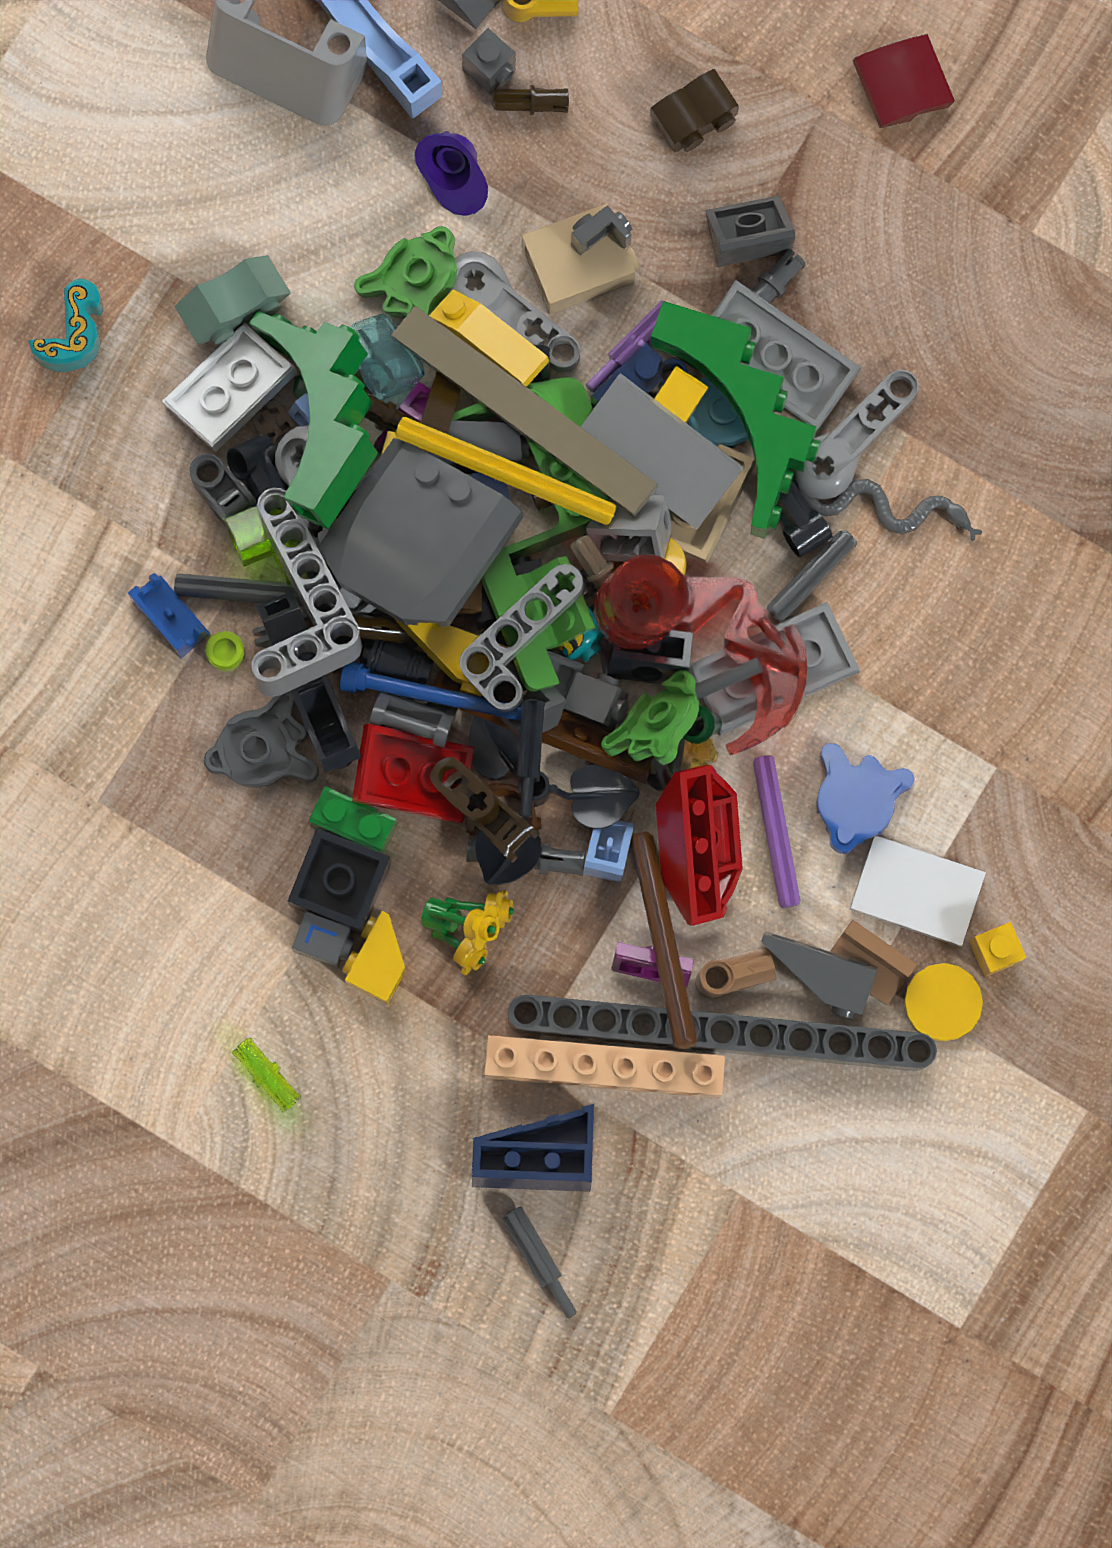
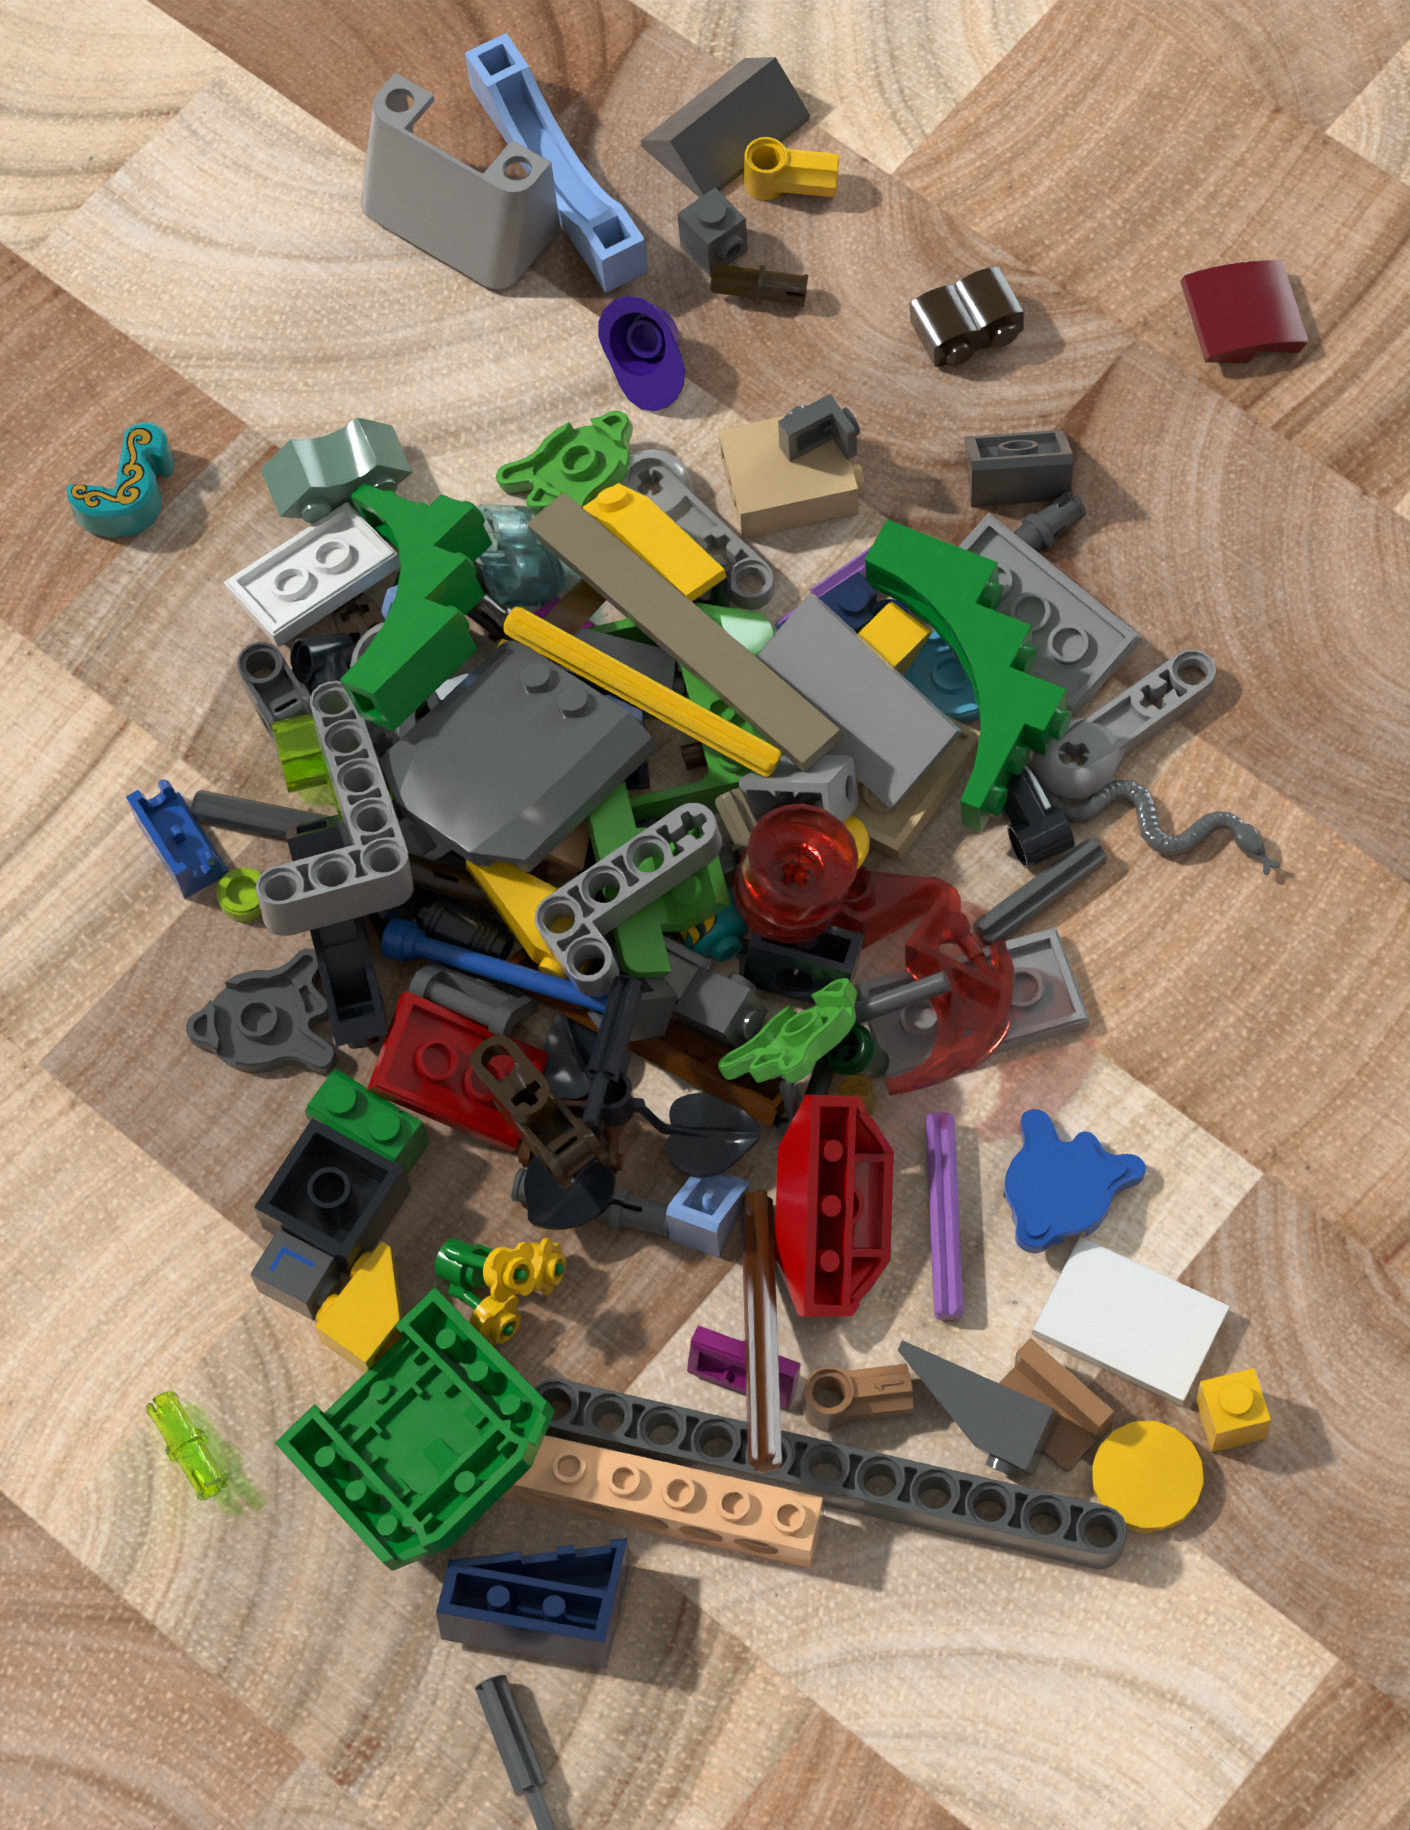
camera: 20 degrees right, 15 degrees down
(438, 1051) = (422, 1437): none -> green wedge

